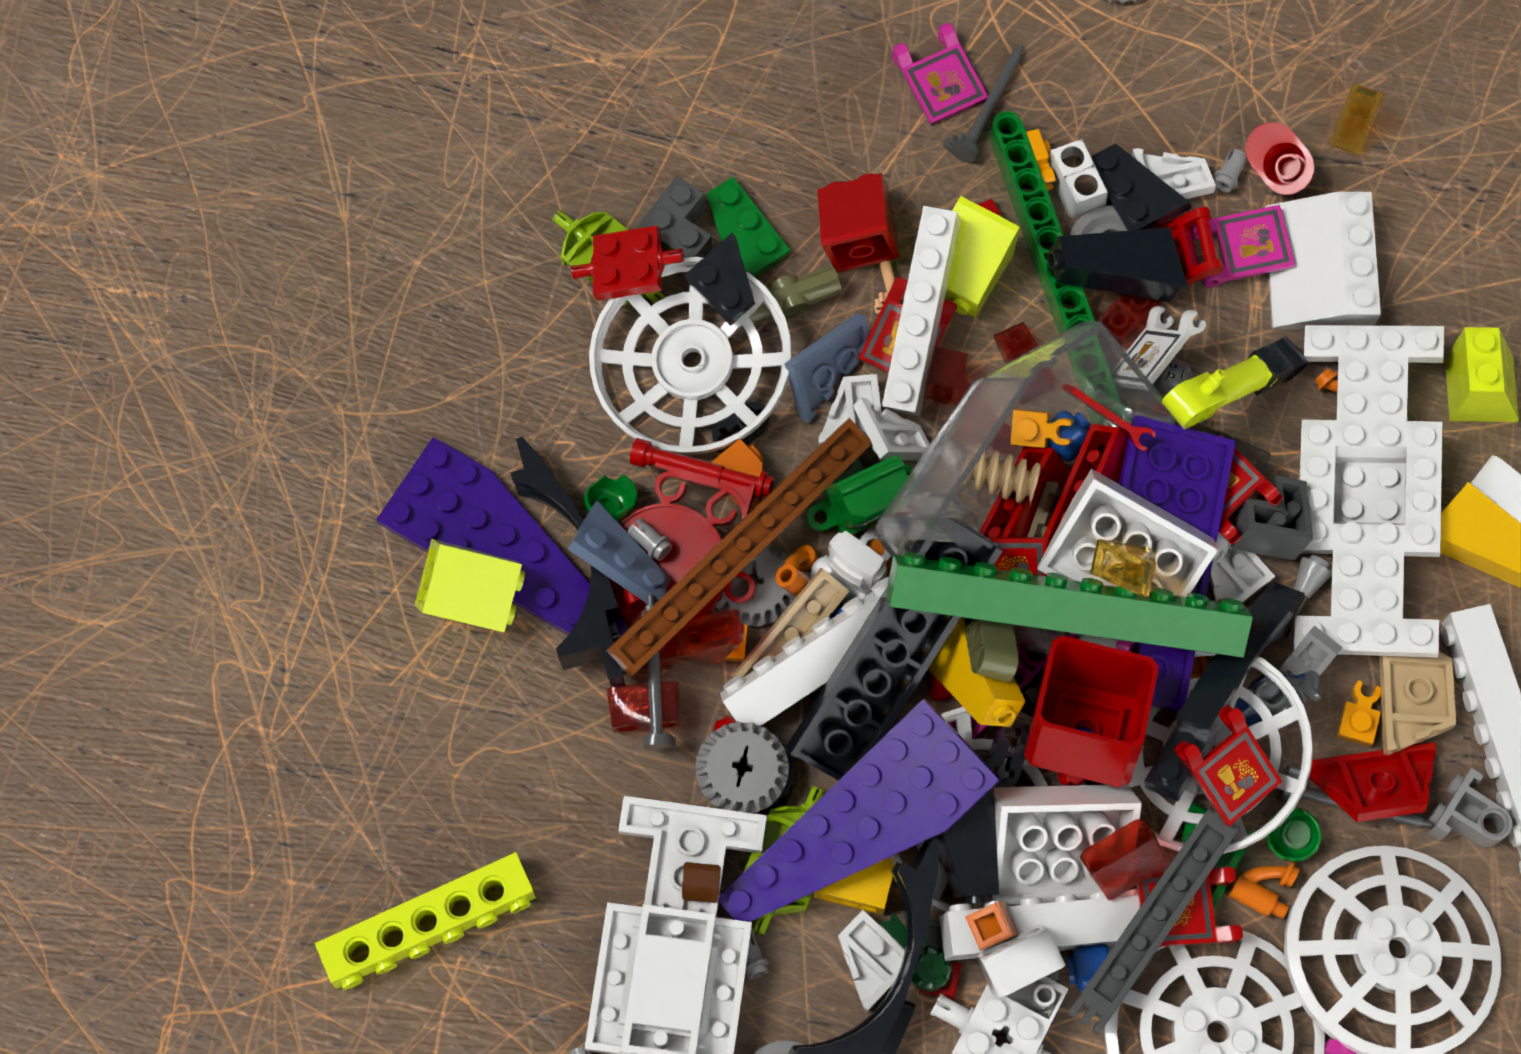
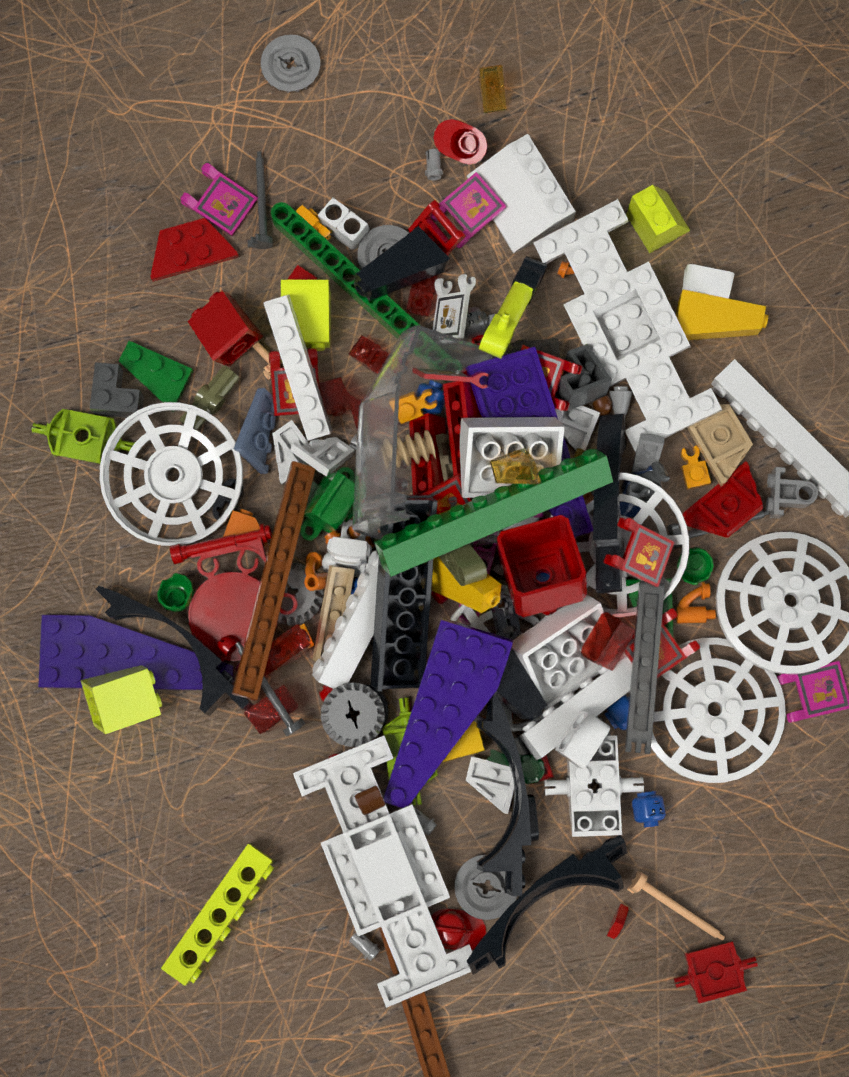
camera: 30 degrees left, 10 degrees up
(617, 555) = (202, 628): sand blue wing -> none
(627, 263) = (98, 437): red plate -> none
(651, 540) = (216, 606): light grey pin -> none
(723, 280) = (165, 416): black wing -> none
(870, 112) = (189, 248): none -> red wing
(991, 925) = (554, 726): orange slope -> none
(1135, 191) = (384, 212): black wing -> none
(1185, 175) = (400, 189): white wing -> none
(1284, 570) = (603, 405): none -> reddish brown hinge

